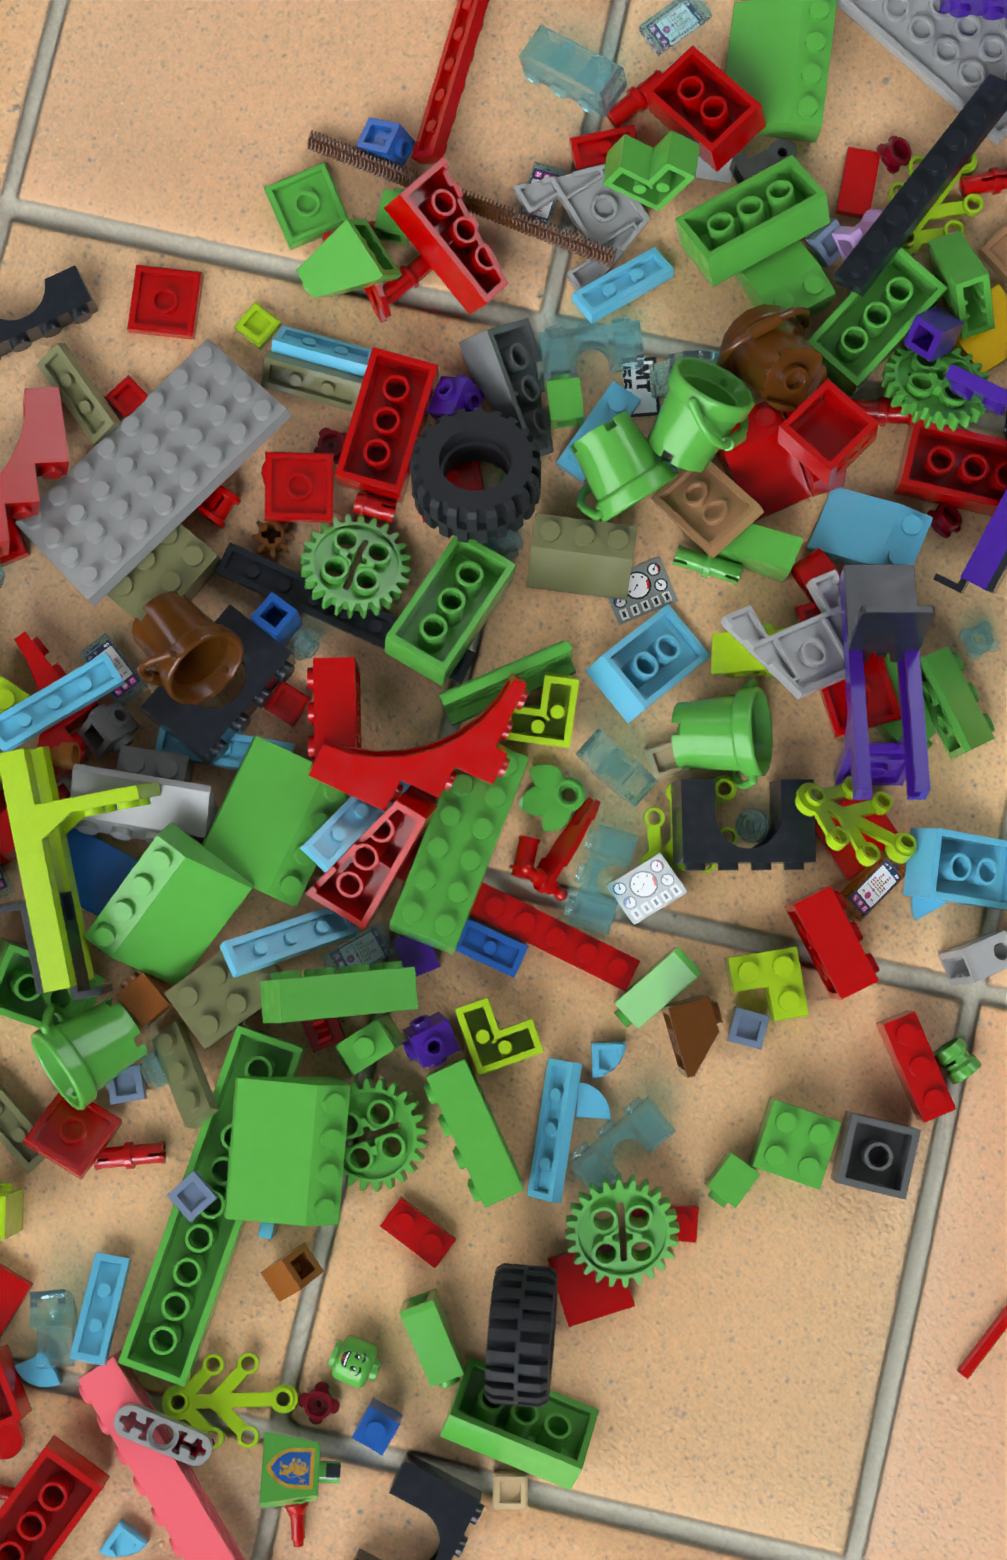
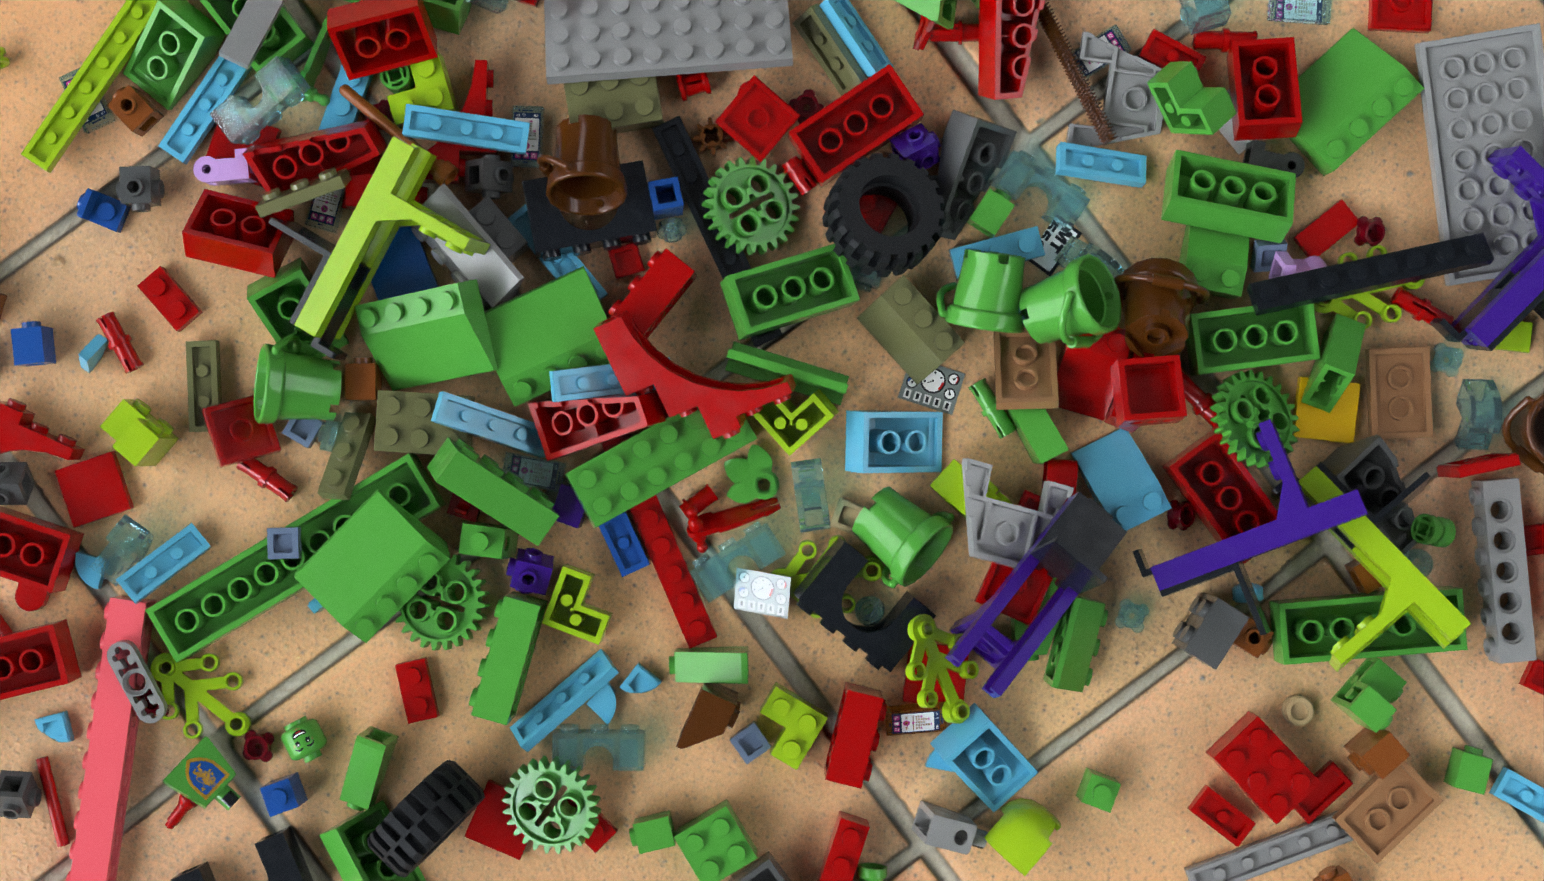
camera: 30 degrees right, 5 degrees up
(292, 1272) = (310, 646): dark orange brick -> none
(933, 333) = (1283, 382): dark purple brick -> none

